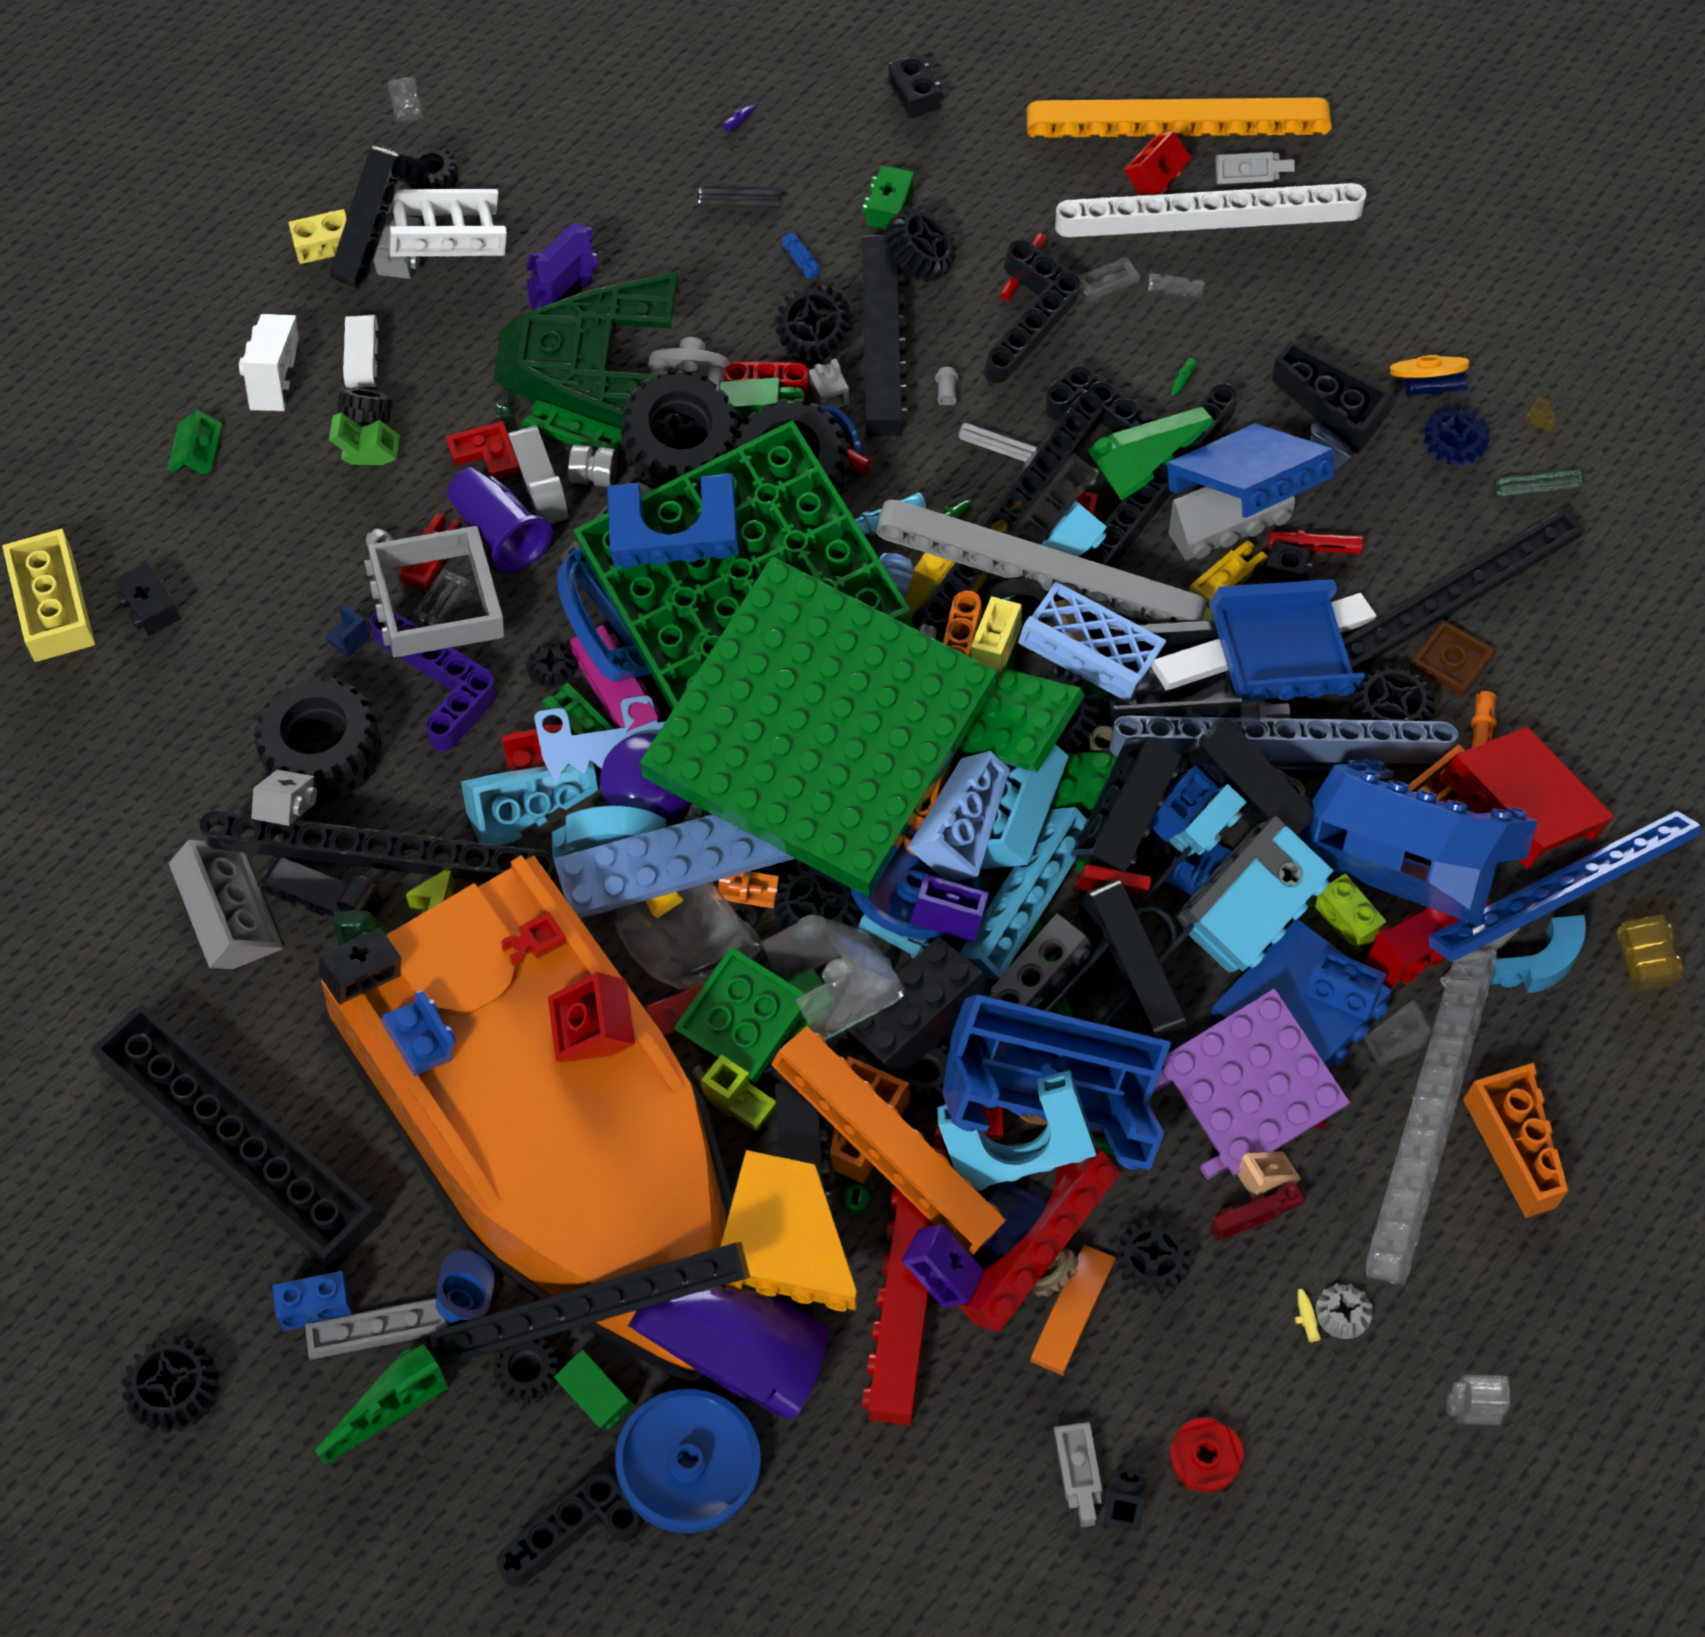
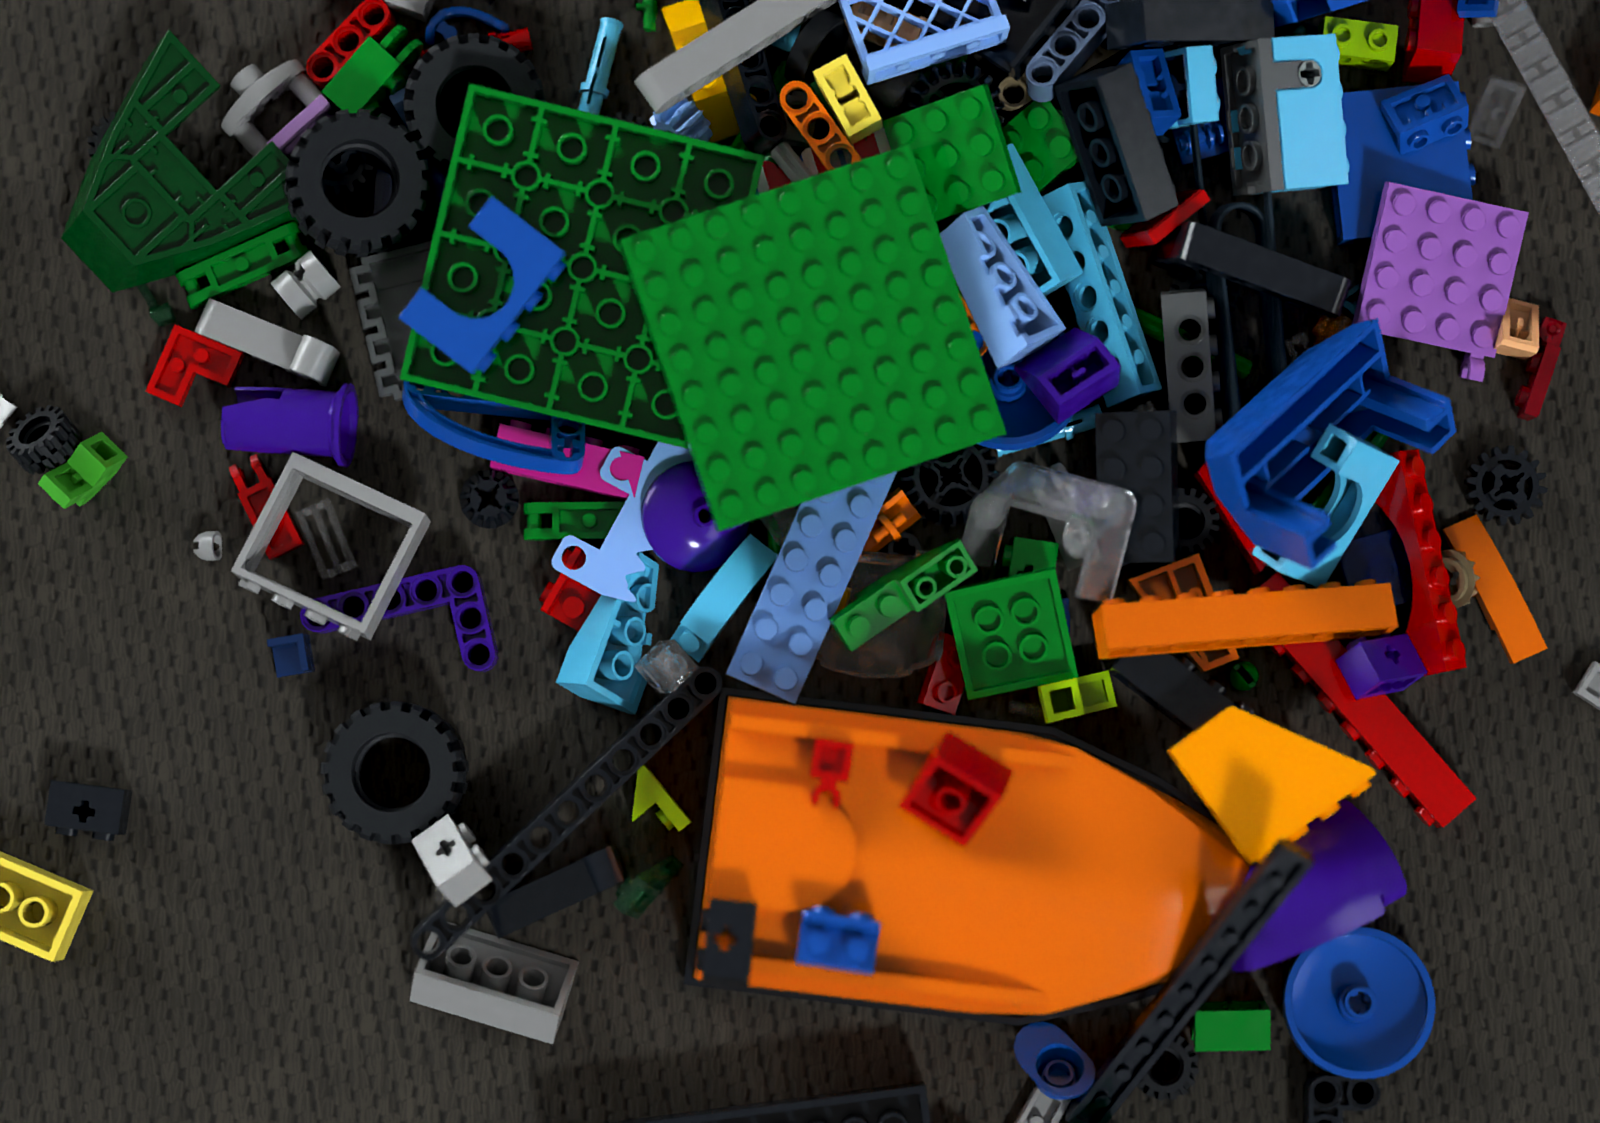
camera: 45 degrees left, 25 degrees up
(530, 832) = (666, 666): none -> clear brick
(561, 266) = (44, 125): dark purple brick -> none
(705, 923) = (902, 590): none -> green slope

